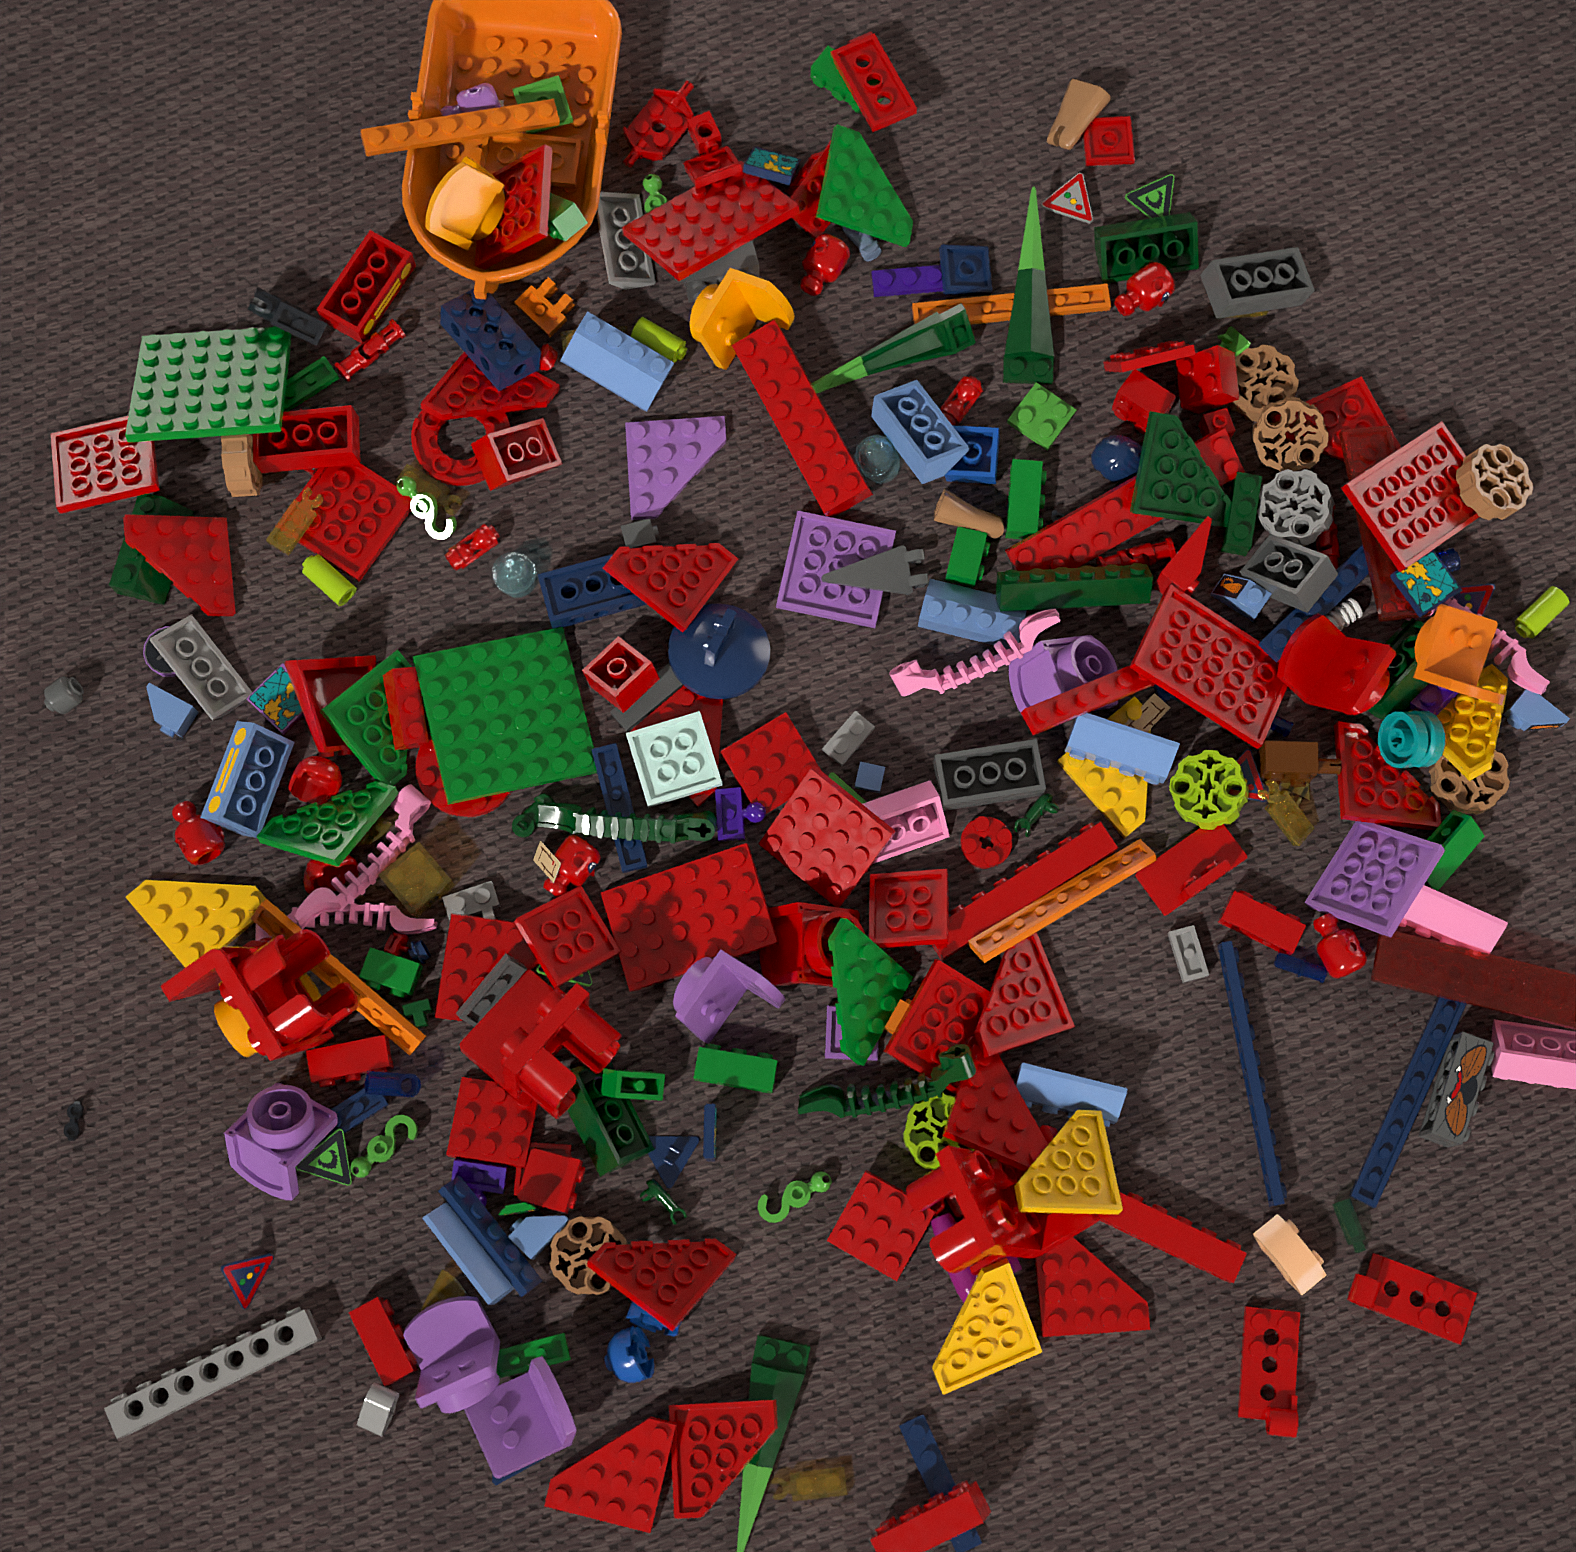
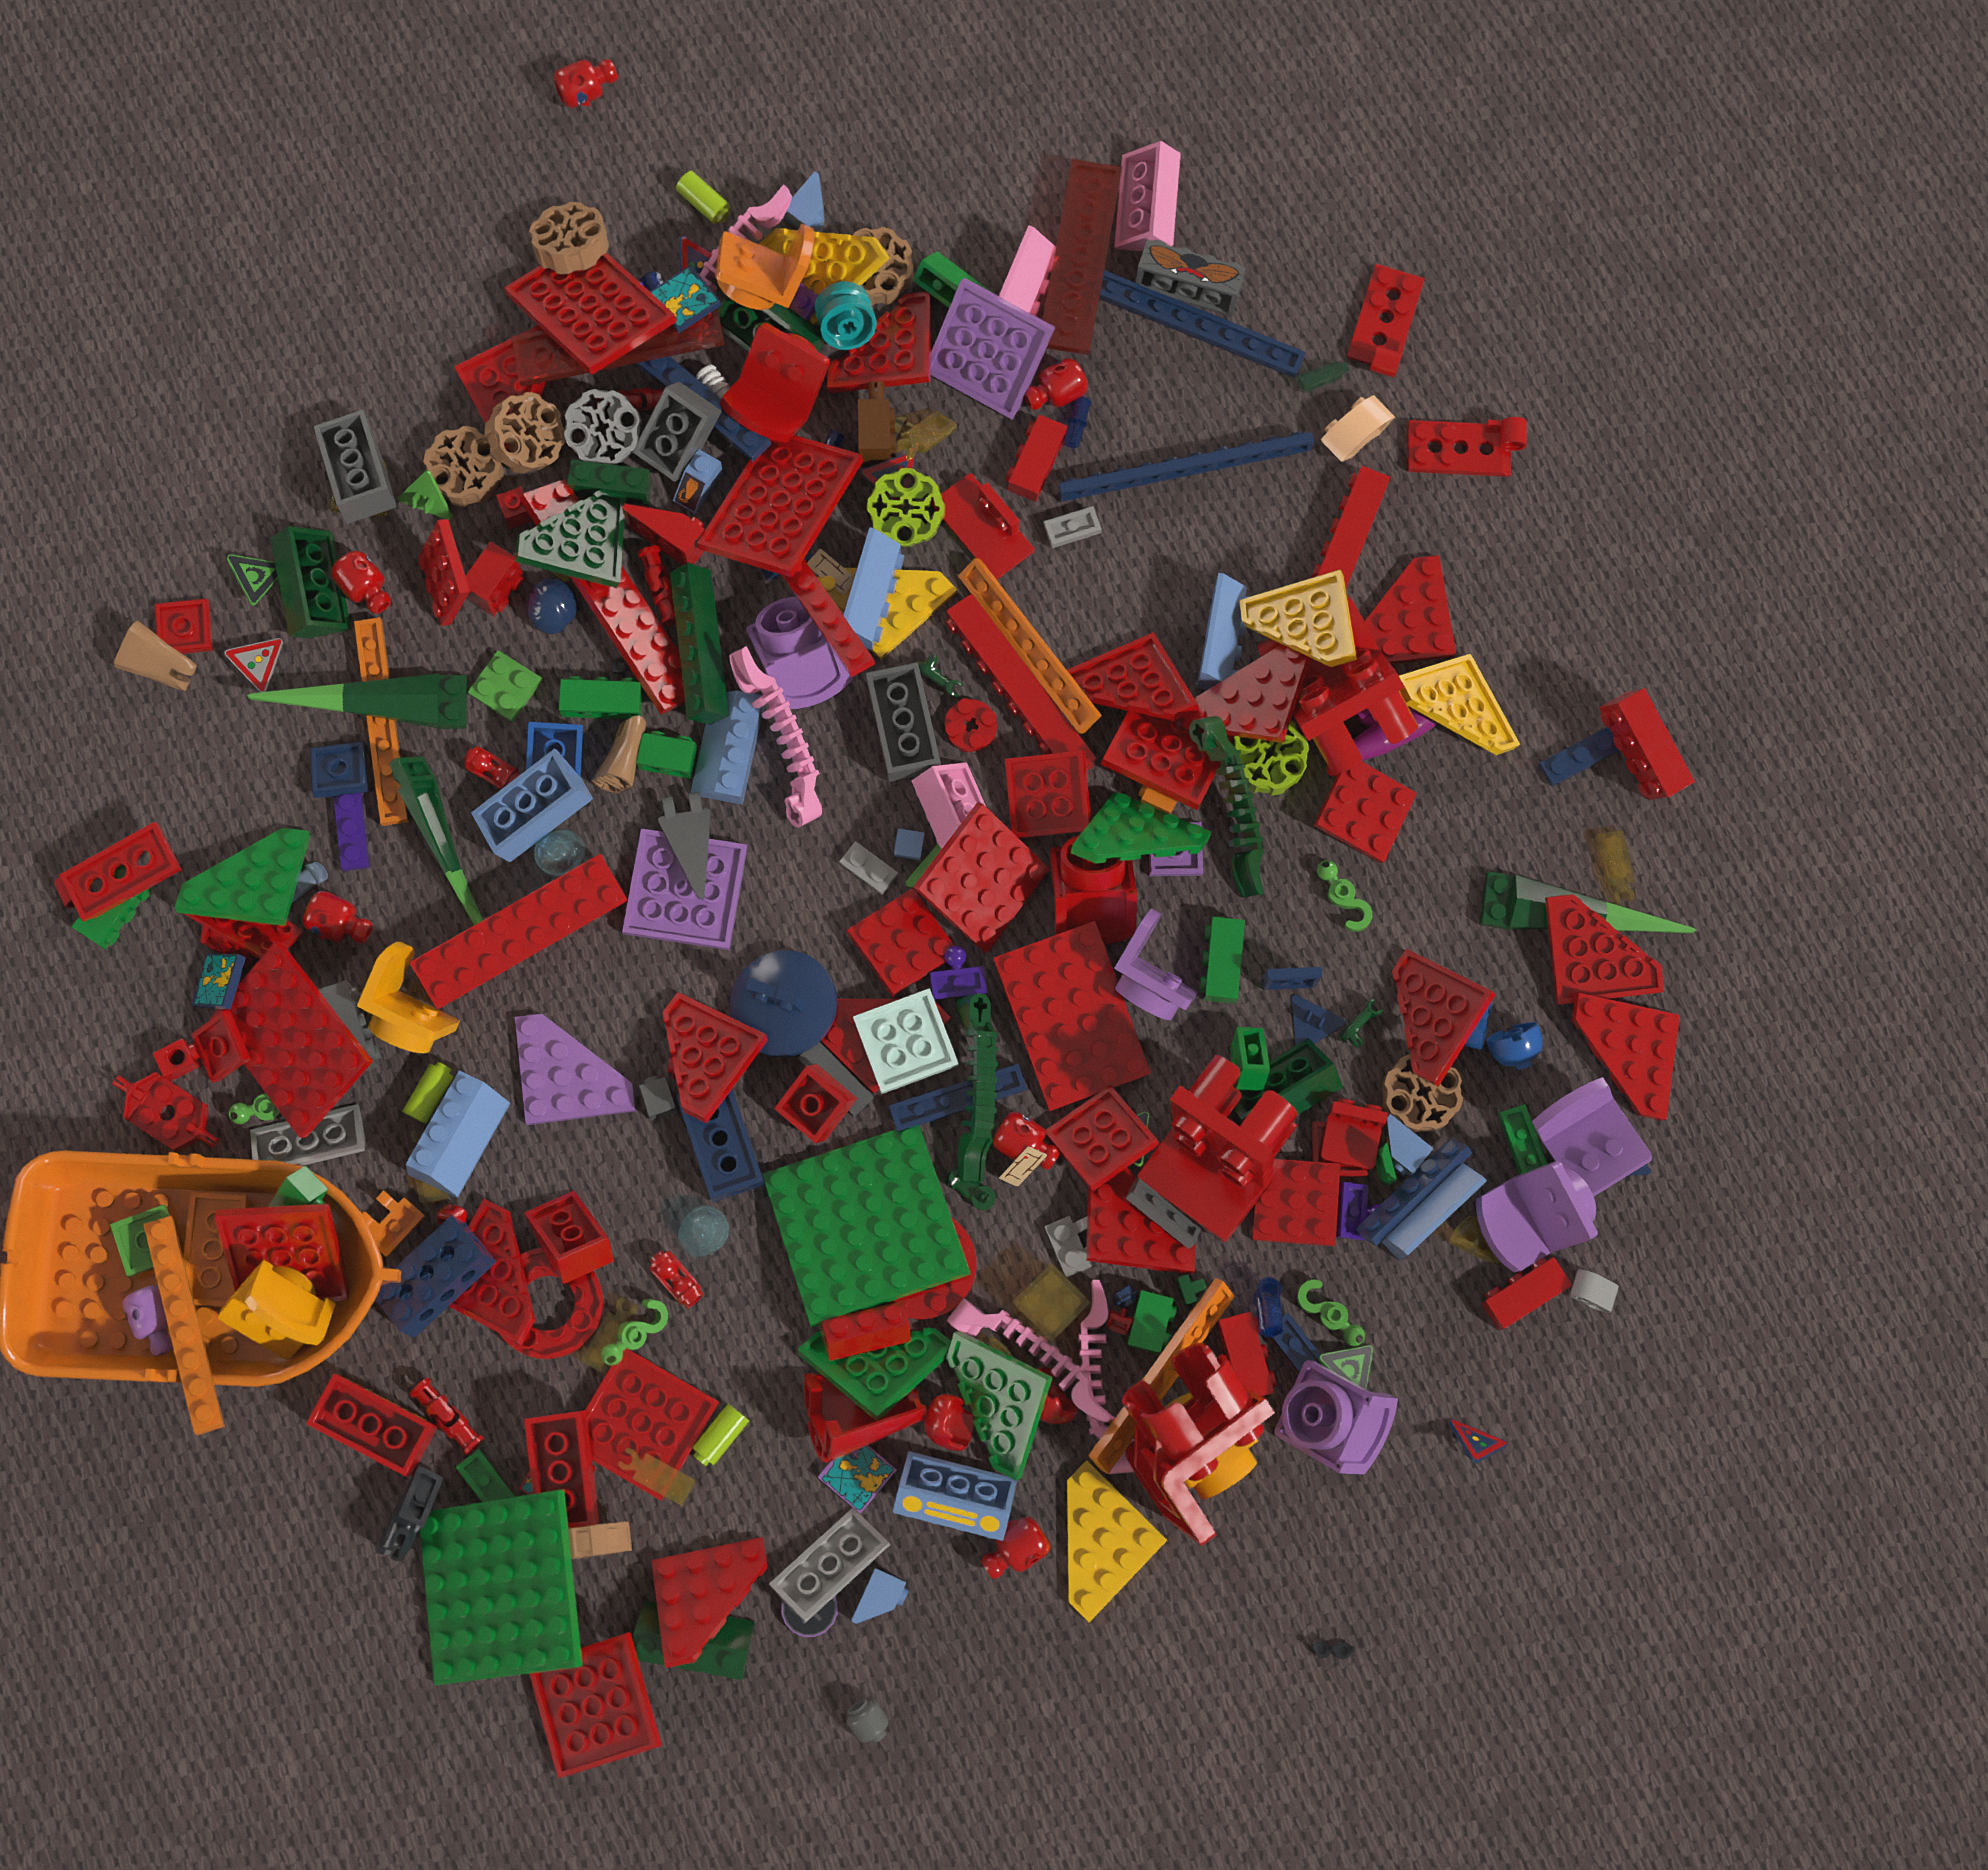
camera: 100 degrees left, 0 degrees up
(121, 1411) = (1634, 1548): light grey brick -> none
(1207, 379) = (468, 513): red brick -> none

